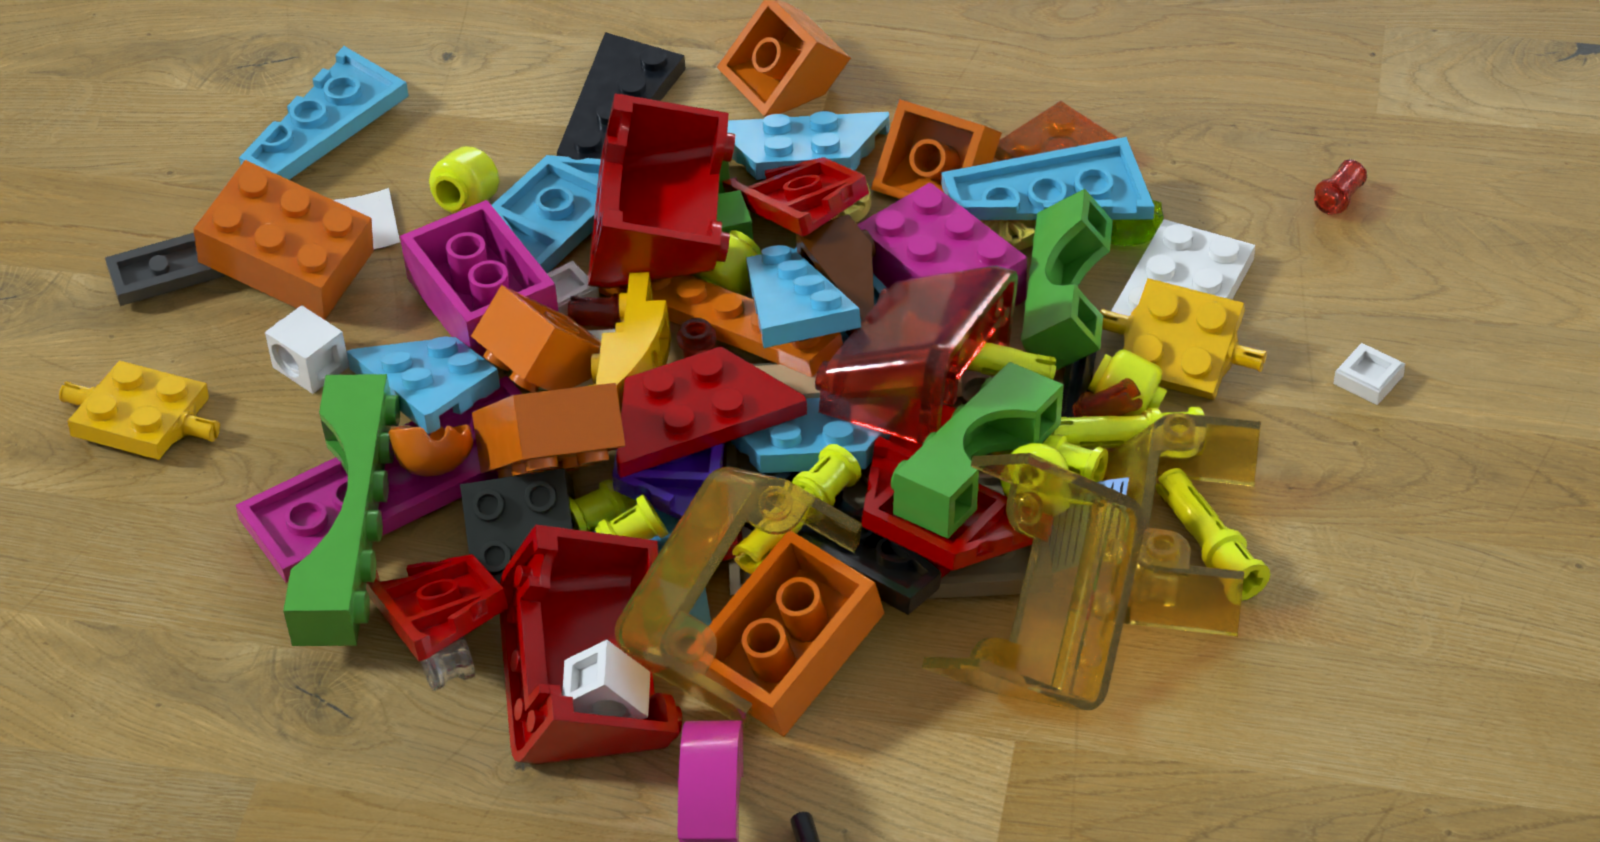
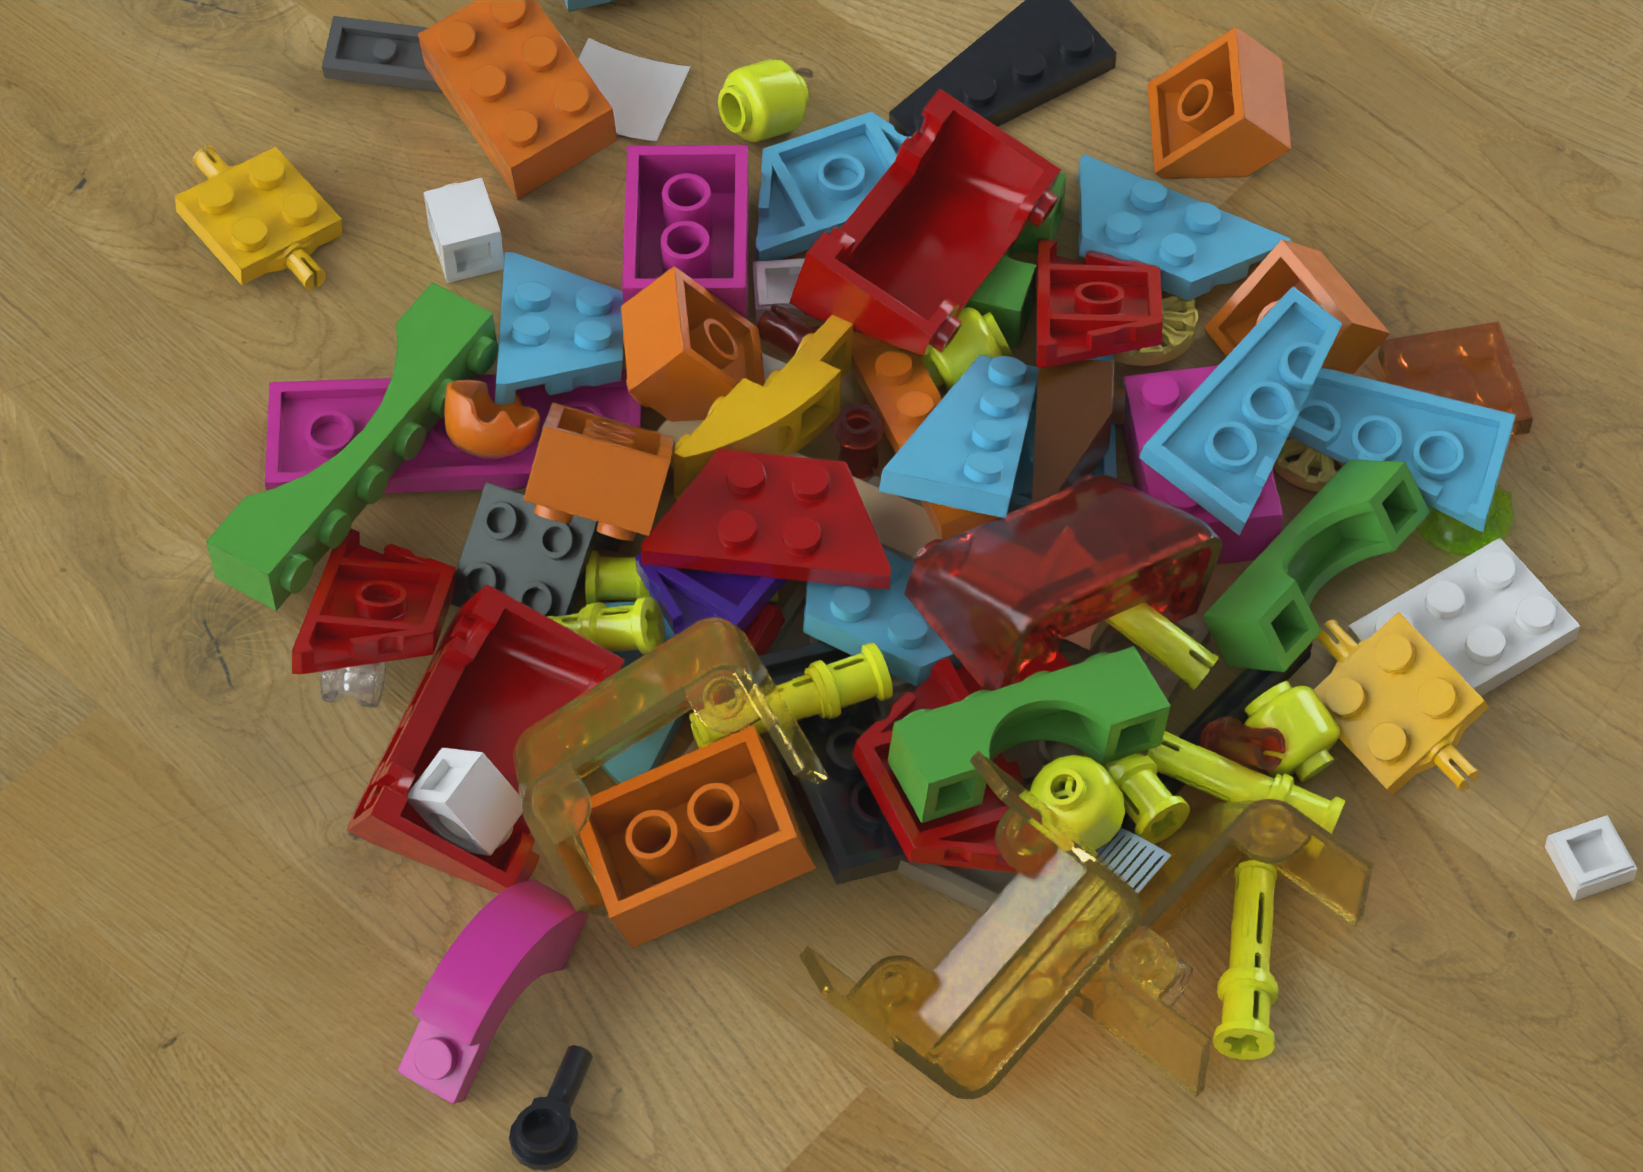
camera: 30 degrees right, 10 degrees up
(961, 203) = (1238, 419): none -> medium azure wing

